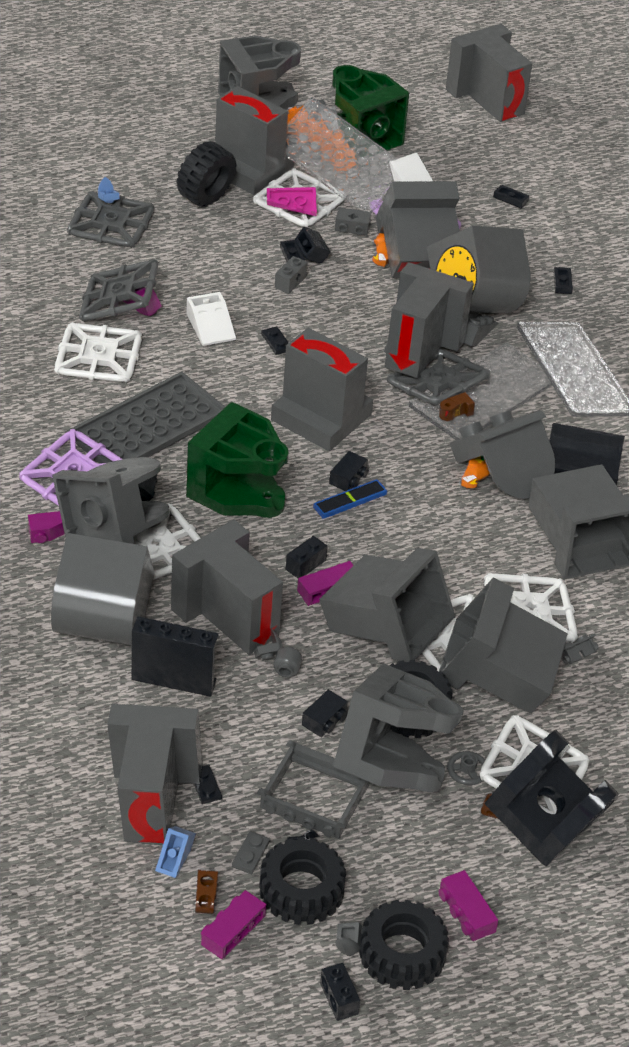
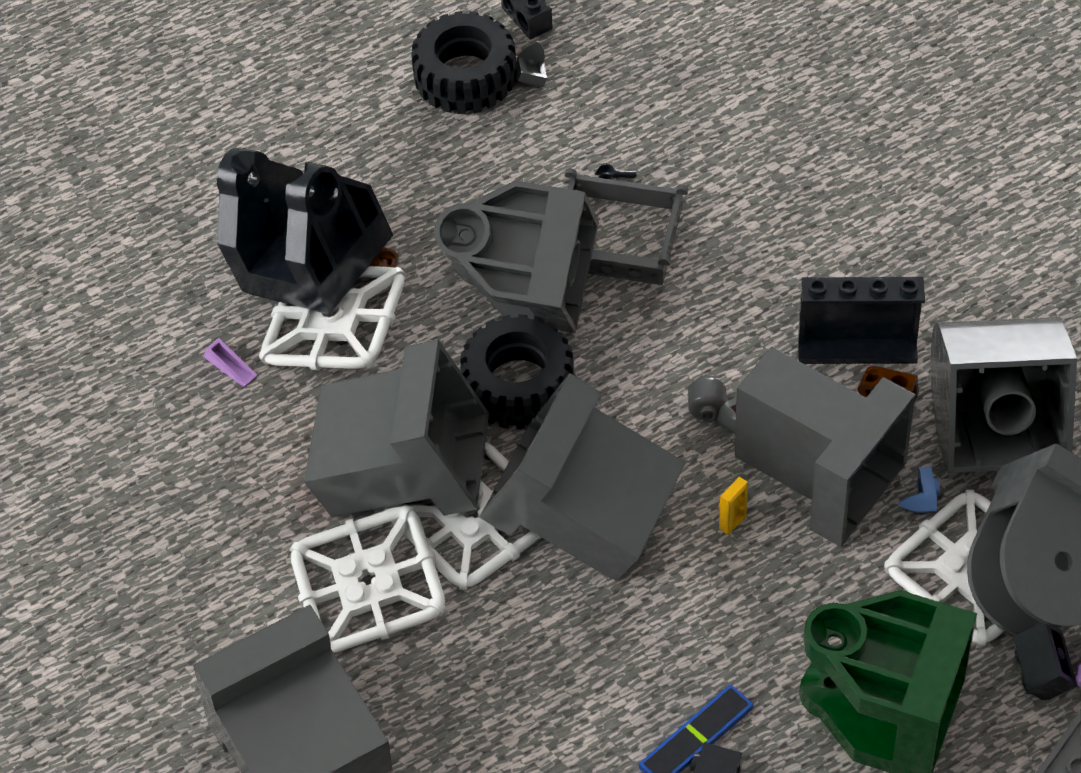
camera: 175 degrees right, 10 degrees up
(150, 755) = (827, 165): dark grey piece -> none
(165, 583) = (928, 491): none -> medium blue plate
(175, 851) = (764, 122): medium blue slope -> none
(206, 891) = (712, 83): reddish brown leg -> none
(208, 788) = (760, 216): black plate -> none
(233, 924) = (668, 53): magenta brick -> none
(250, 852) = (675, 145): dark grey plate -> none
(293, 587) = (733, 505): none -> yellow plate
(300, 903) = (601, 132): black tyre -> none
(306, 557) = (732, 582): black brick -> none
(315, 585) = (685, 548): magenta brick -> none
(325, 713) = (632, 335): black brick -> none
(468, 765) = (424, 311): dark grey piece -> none
(468, 905) = (396, 131): magenta brick -> none
(584, 645) = (290, 530): dark grey hinge -> none
(614, 765) = (227, 361): none -> lavender piece

